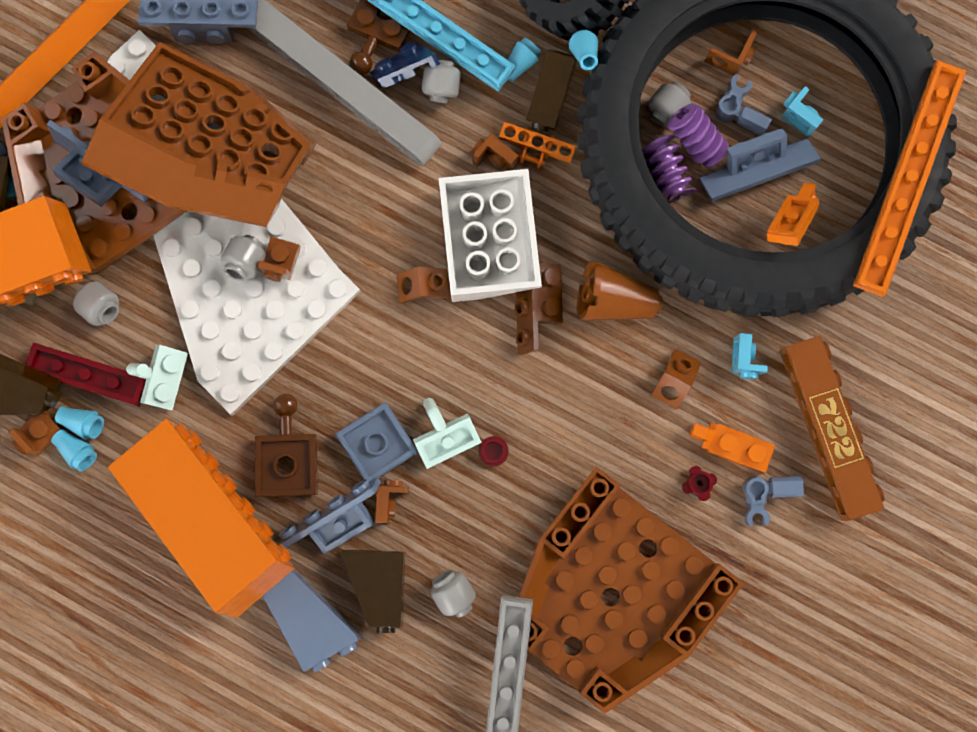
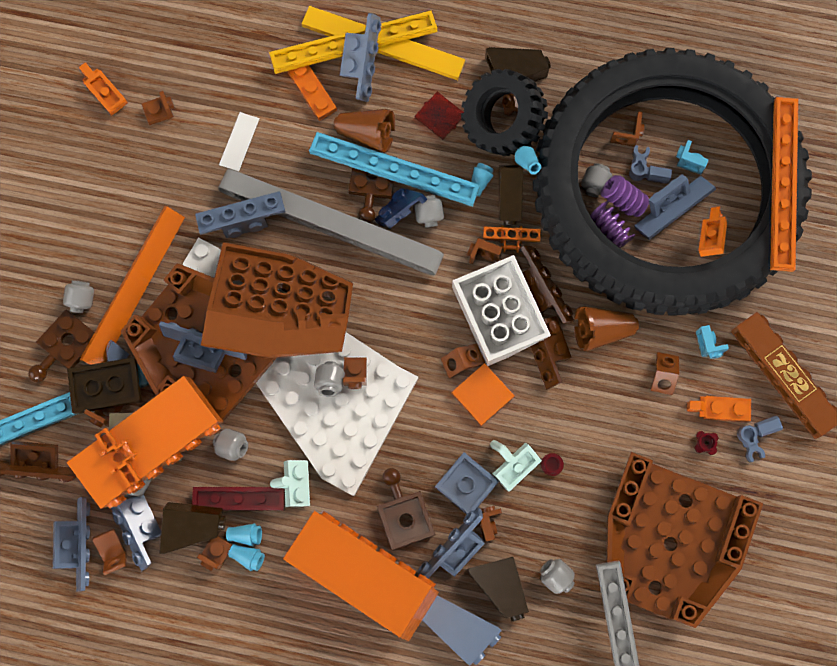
camera: 15 degrees left, 5 degrees down
(434, 336) = (482, 394): none -> orange tile
(554, 223) = (542, 288): none -> reddish brown bracket

